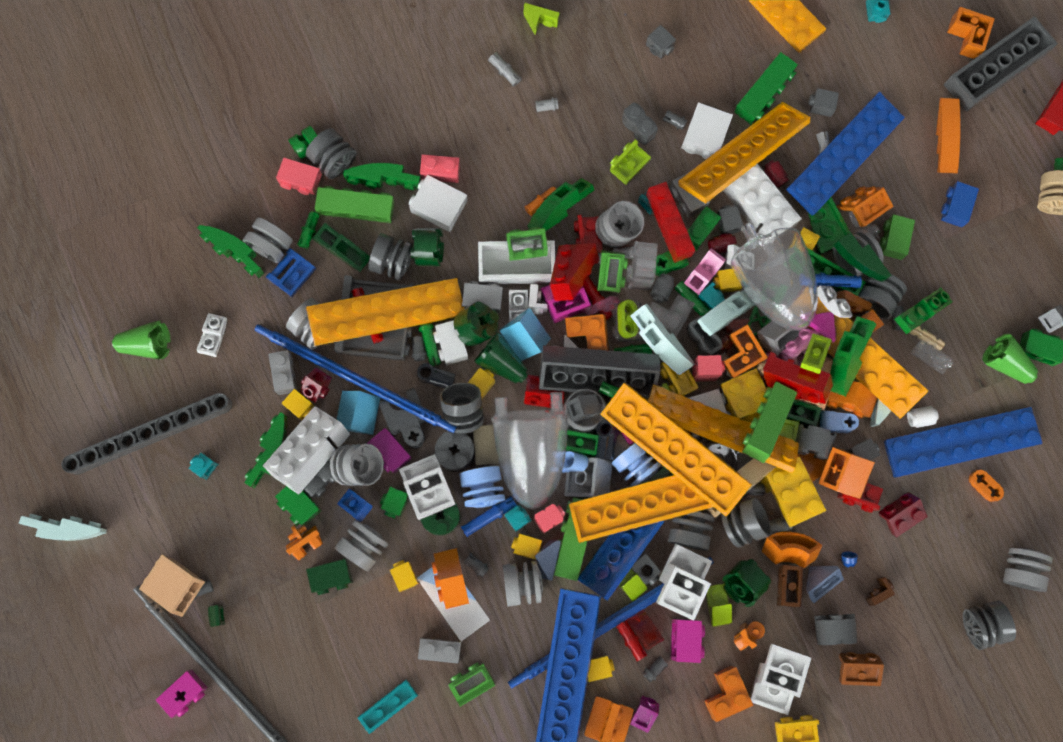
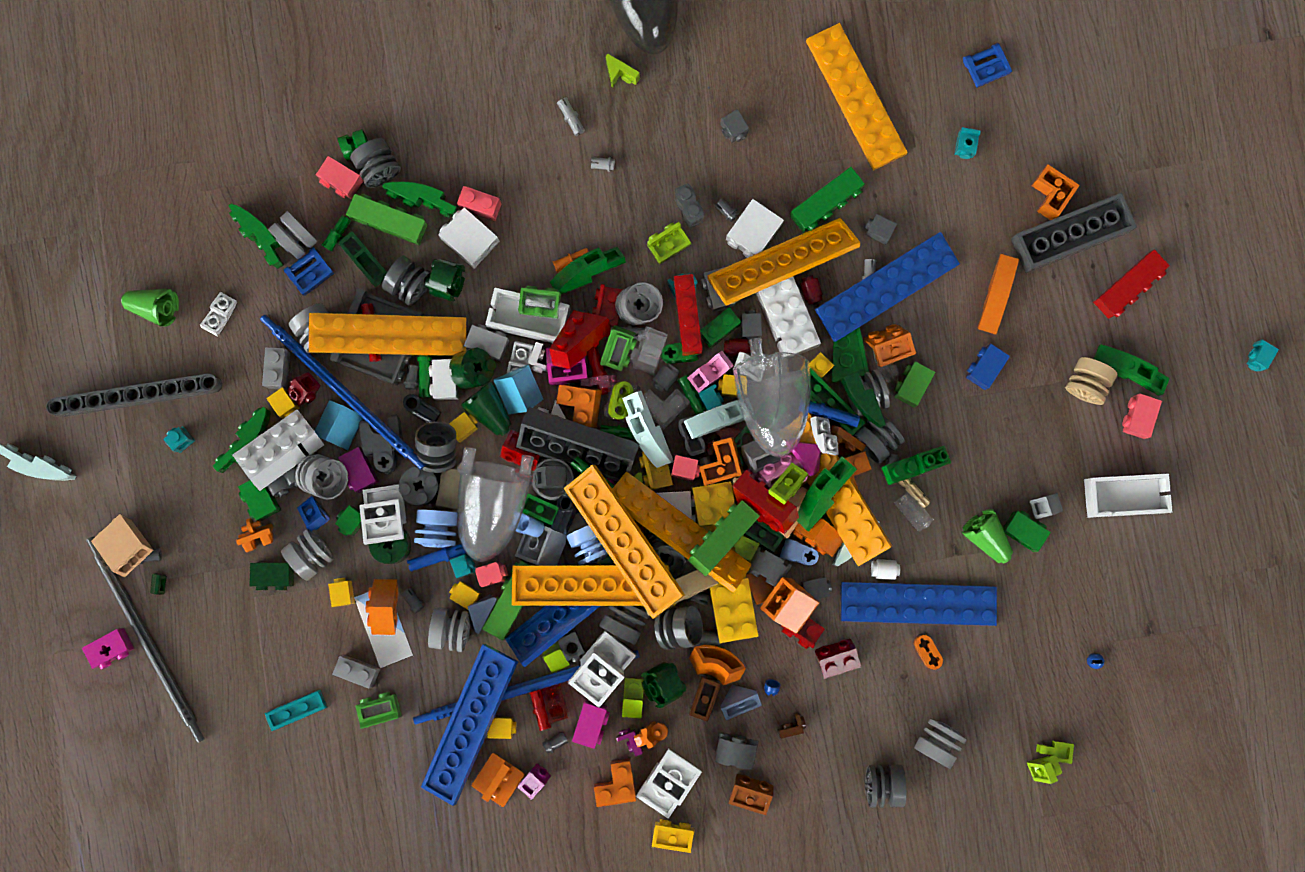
camera: 20 degrees right, 5 degrees up
(732, 650) = (627, 733): none -> magenta bracket

